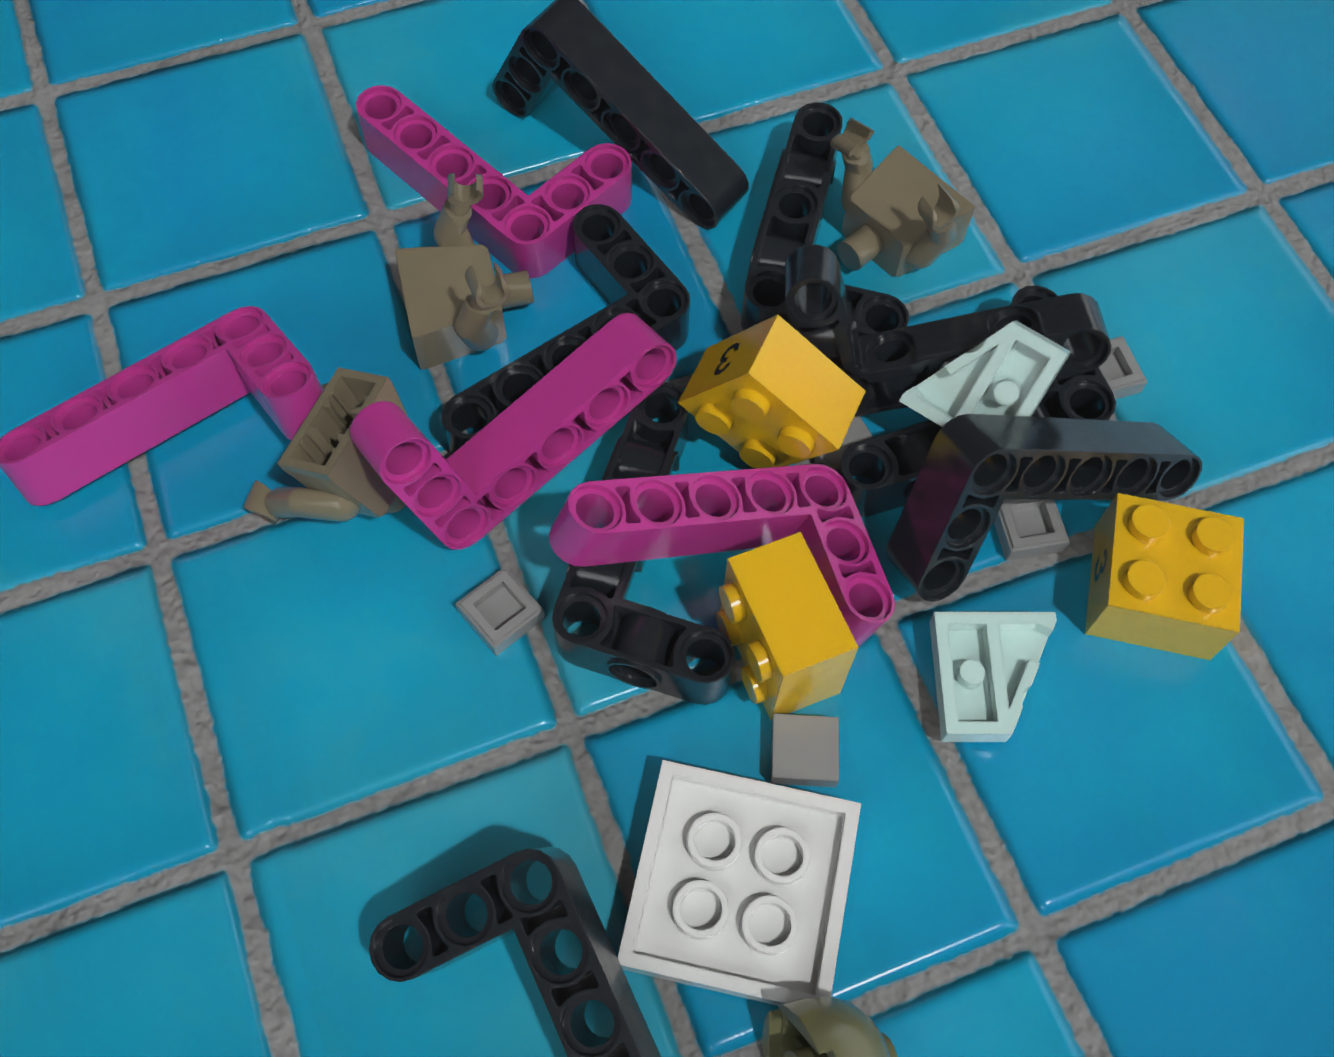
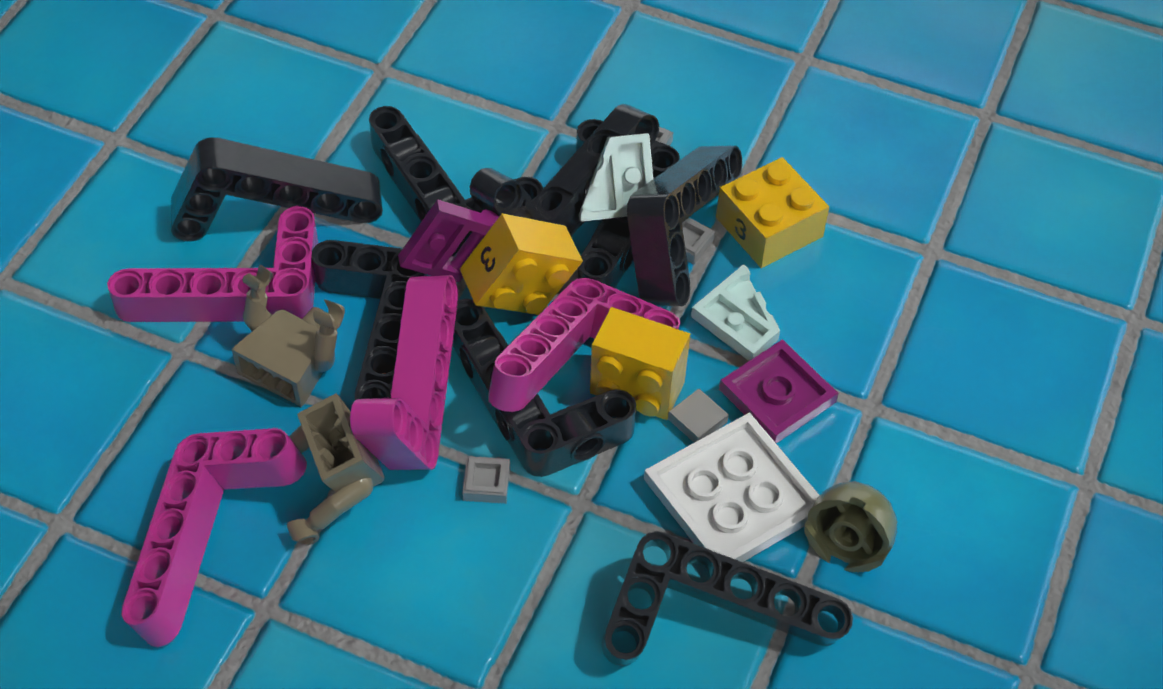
camera: 45 degrees left, 10 degrees down
(702, 289) = (439, 236): none -> magenta plate
(896, 213) = (472, 134): dark tan torso -> none
(931, 809) = (778, 390): none -> magenta plate

